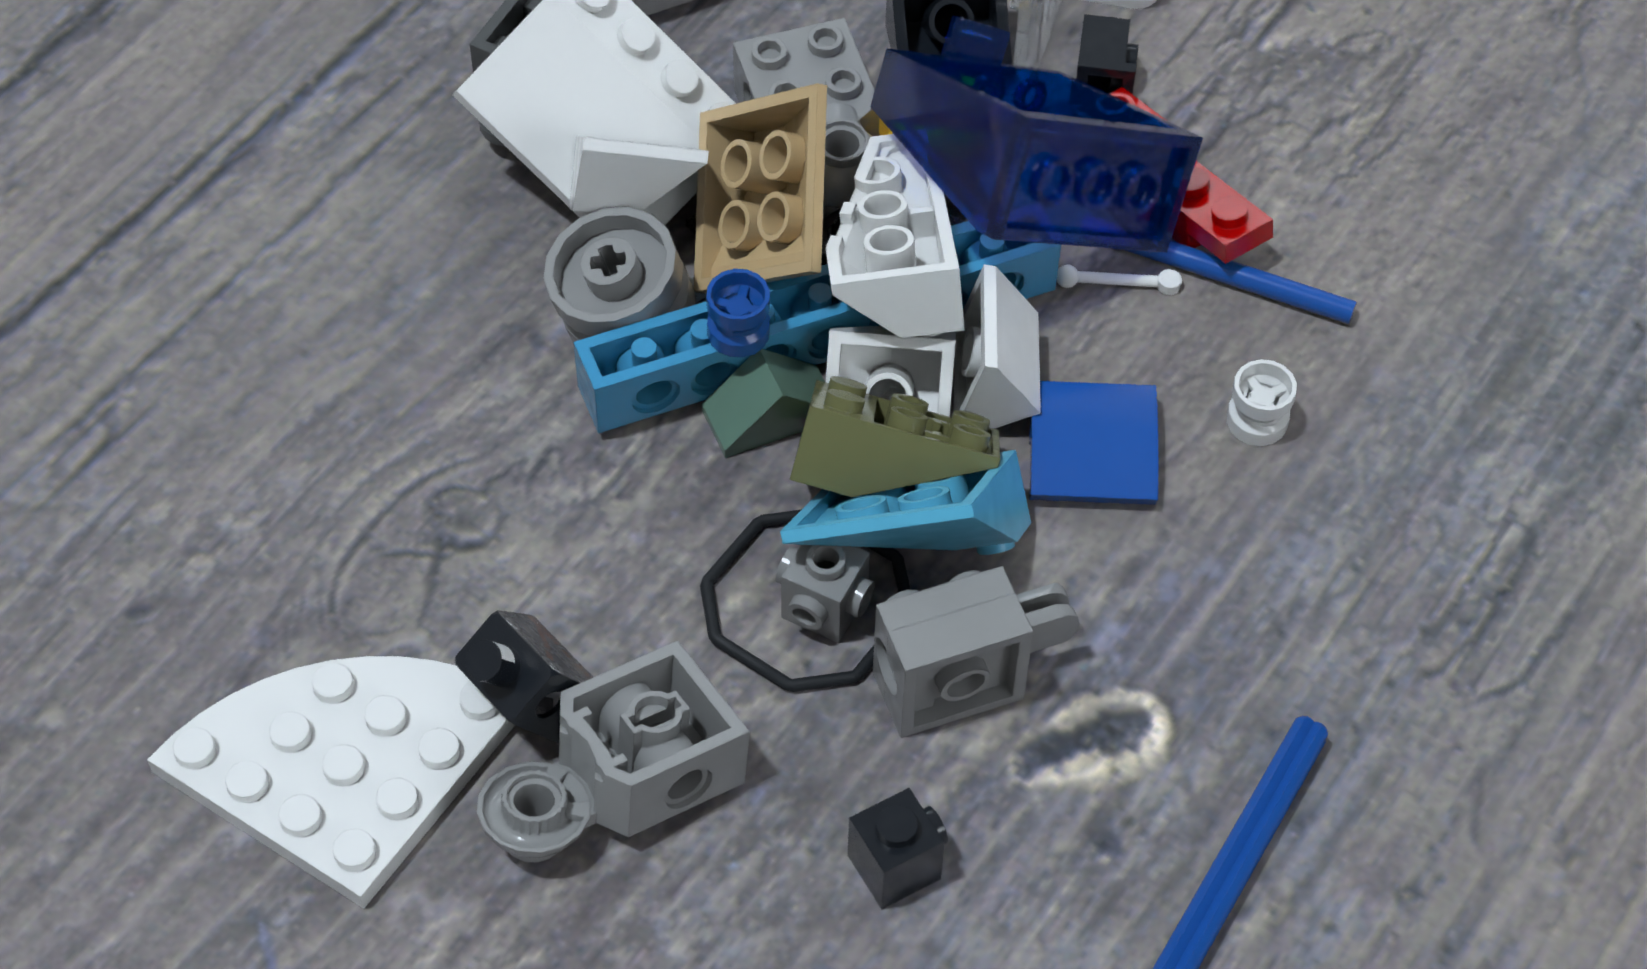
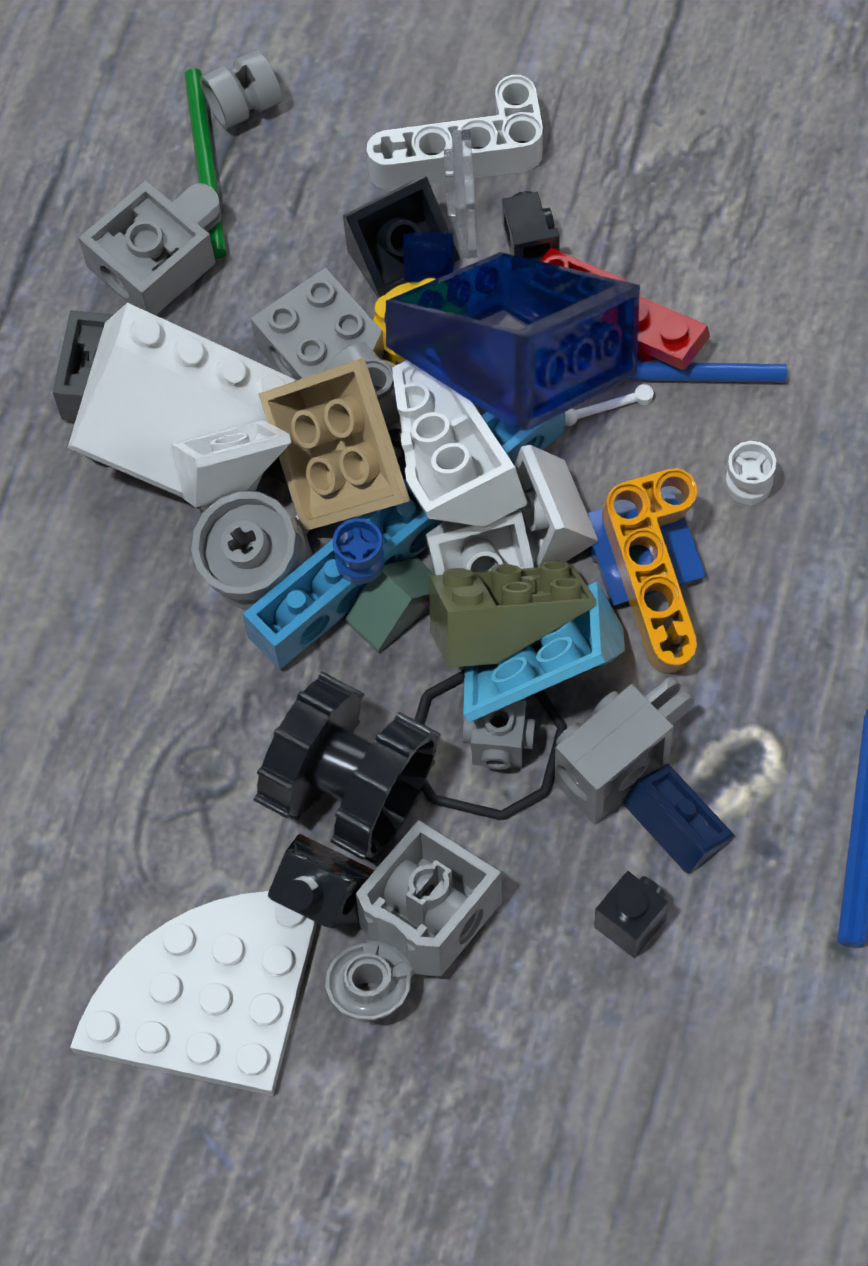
camera: 15 degrees left, 10 degrees up
(600, 527) = (321, 753): none -> black piece
(1006, 763) = (677, 818): none -> dark blue slope
(1093, 469) = (659, 574): none -> light orange beam

